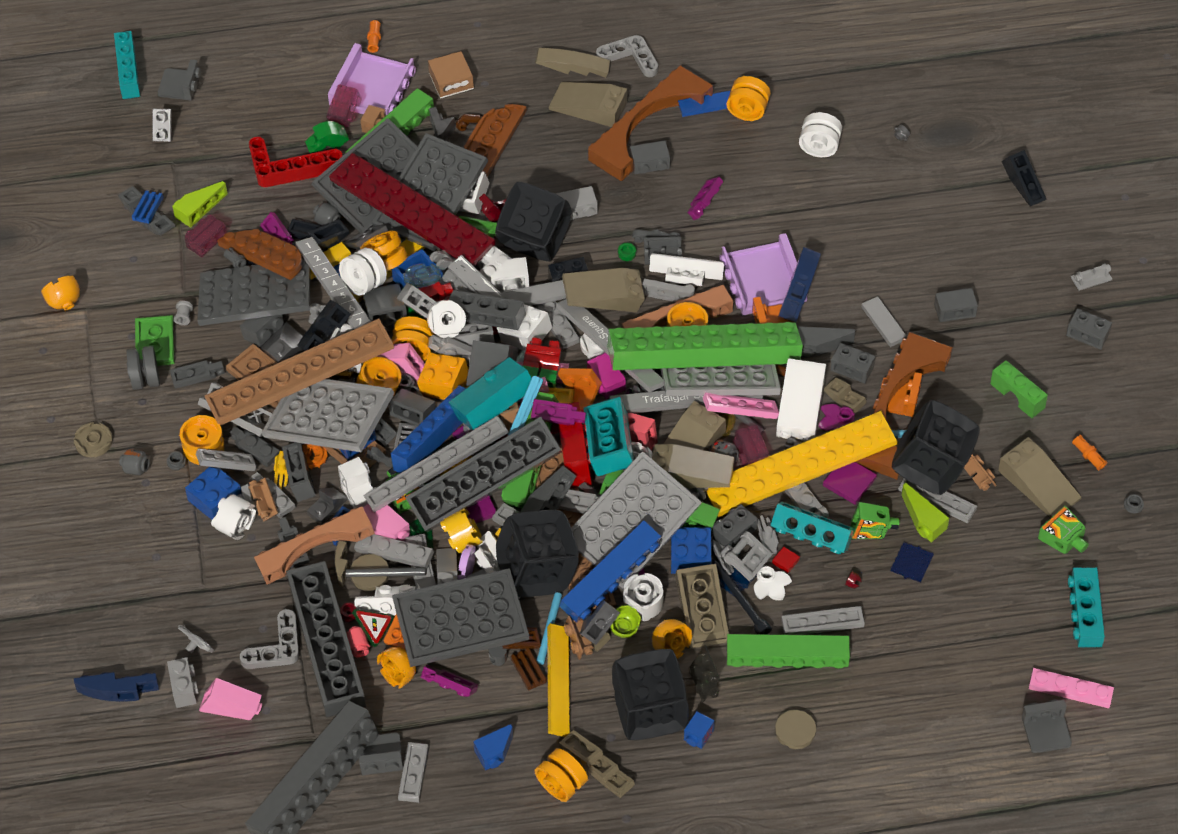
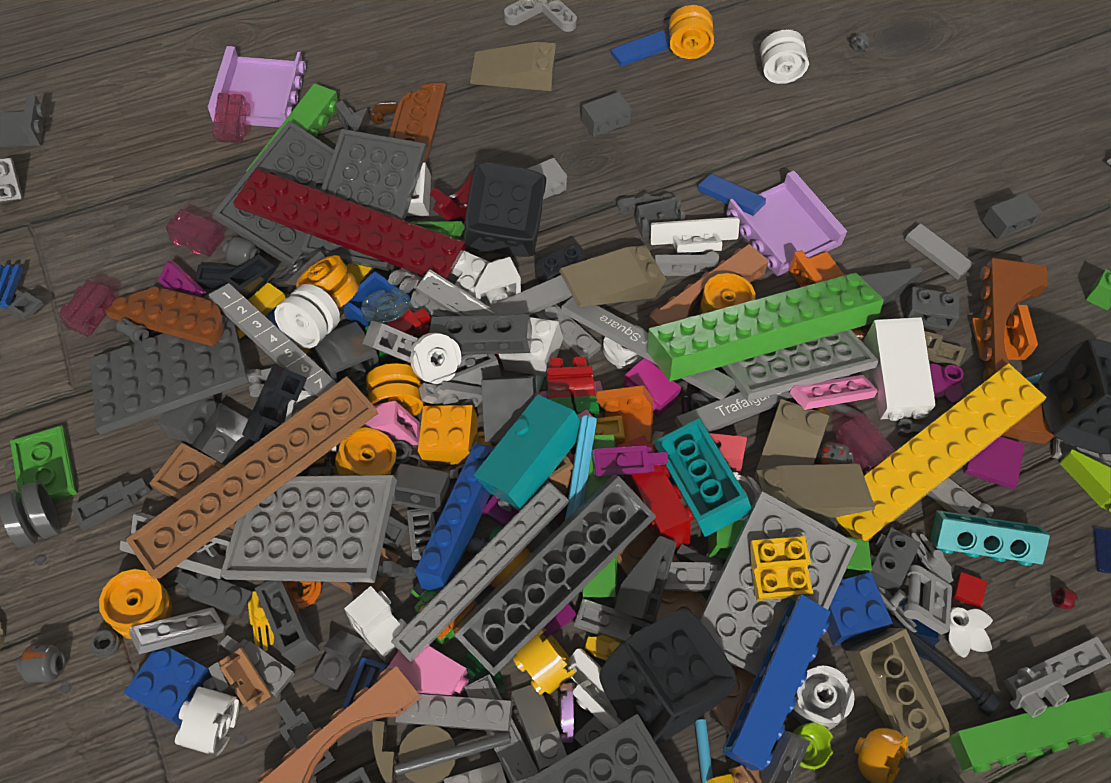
camera: 20 degrees left, 5 degrees up
(183, 312) = (76, 419): light grey bush -> none
(198, 203) = (70, 269): lime slope -> none
(288, 169) = (195, 198): red beam -> none
(295, 193) = (194, 233): none -> clear pink brick
(326, 134) = (218, 154): green brick -> none
(371, 117) = (267, 126): medium nougat brick -> none
(374, 36) = (247, 37): orange pin -> none
(450, 74) = (348, 63): medium nougat piece -> none
(575, 61) = (476, 27): dark tan slope -> none
(611, 148) = (559, 113): dark orange arch -> none
(626, 251) = (617, 227): green tile -> none
(638, 503) = (780, 568): none -> yellow slope
(704, 197) = (682, 147): magenta hinge -> none
(724, 238) = (725, 191): none -> blue tile
(794, 622) = (1034, 686): none -> light grey hips
(799, 285) = (843, 223): dark blue slope -> none
(872, 521) = (1065, 506): bright green torso -> none
(1024, 178) = (1006, 64): black slope -> none

